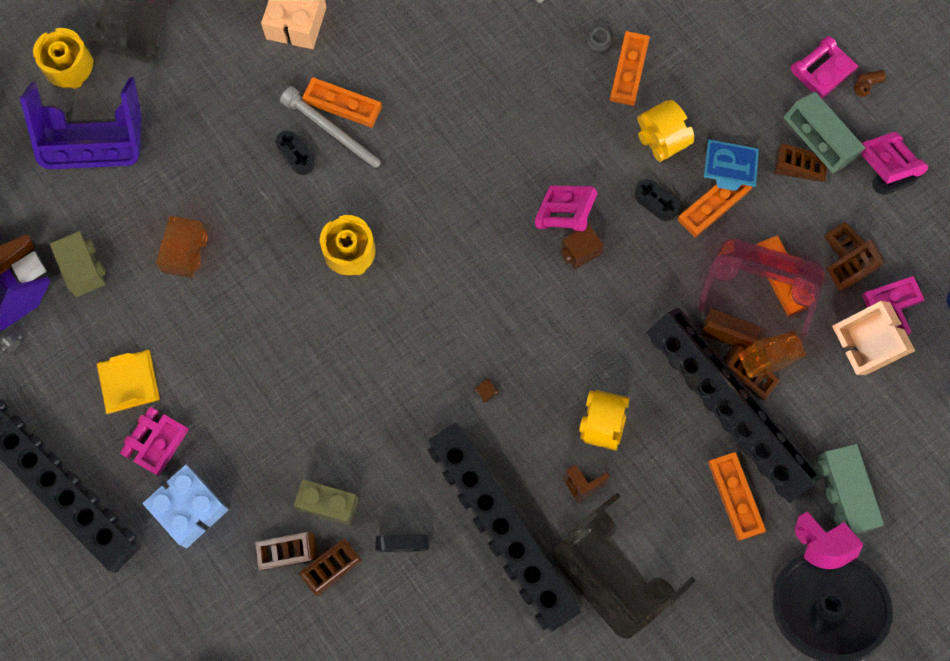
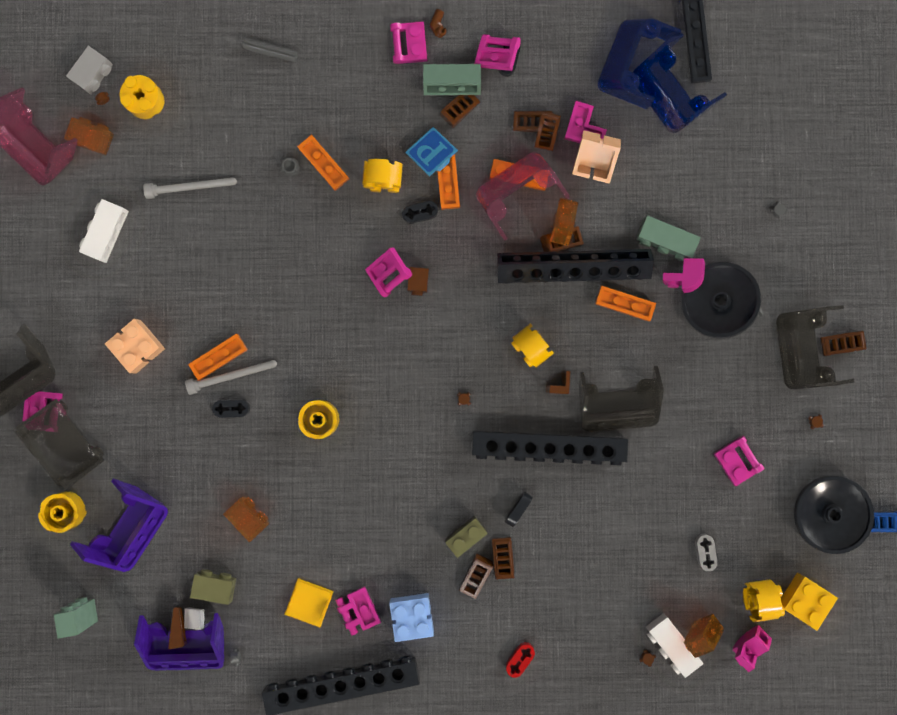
camera: 55 degrees left, 15 degrees up
(729, 329) = (529, 231): reddish brown panel -> none

